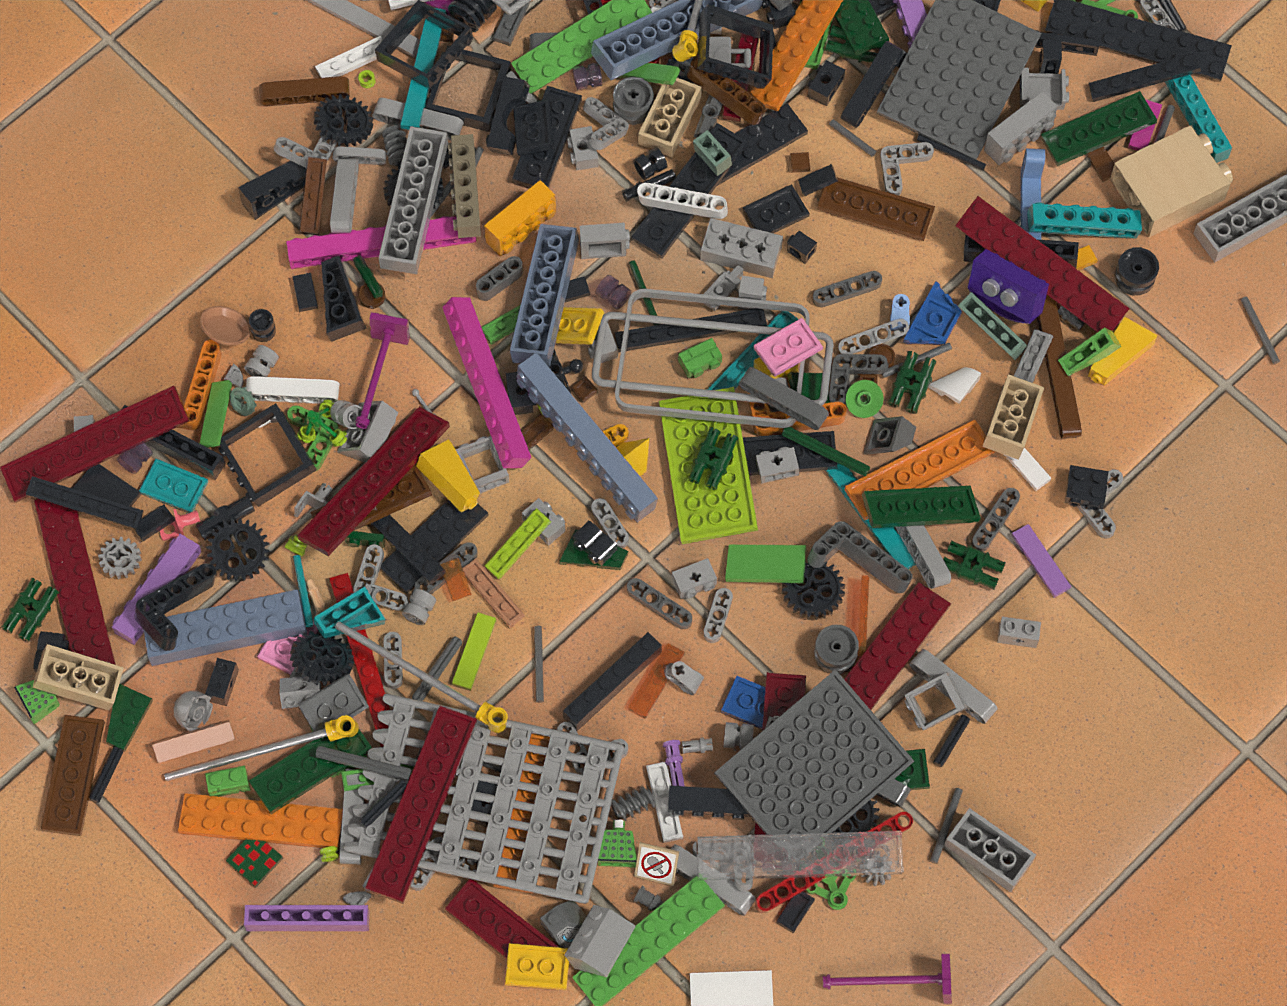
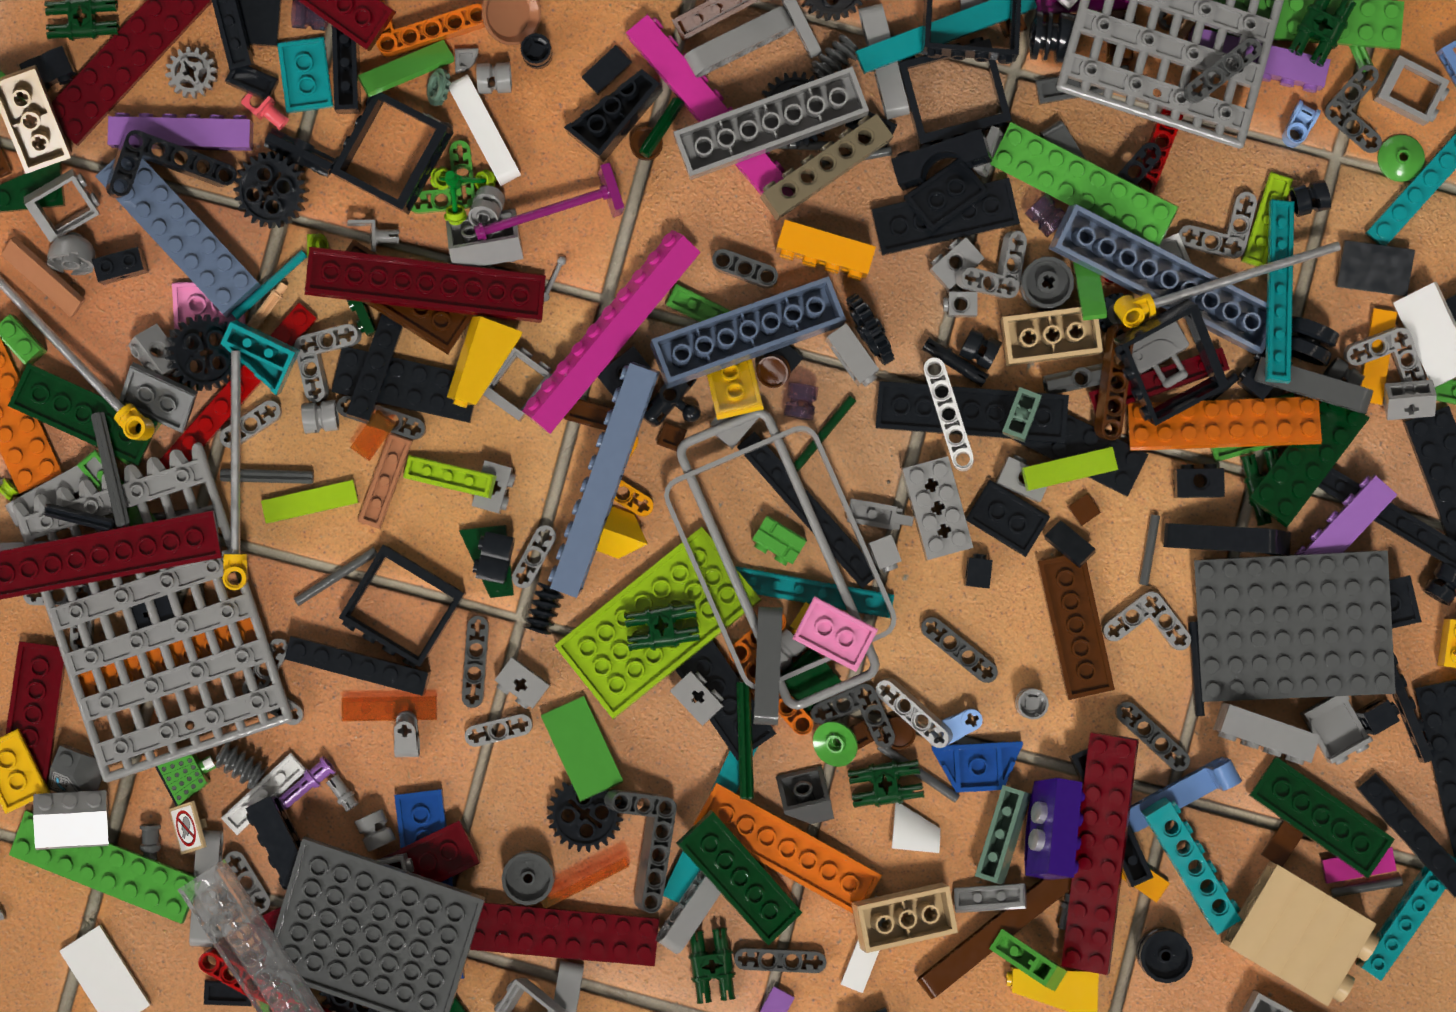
camera: 55 degrees right, 20 degrees up
(150, 713) = (51, 231): none -> light grey window
(576, 601) = (372, 635): none -> black window
(581, 297) = (773, 370): none -> reddish brown piece
(592, 213) = (870, 329): none -> black gear
(616, 153) = (971, 304): none -> light grey brick
(649, 534) = (544, 609): none -> black piece
(750, 193) = (1009, 479): none -> light grey brick
(767, 150) = (1069, 469): none -> lime tile
(912, 261) = (1031, 703): none -> light grey wheel
(992, 193) = (1150, 739): none -> dark grey beam

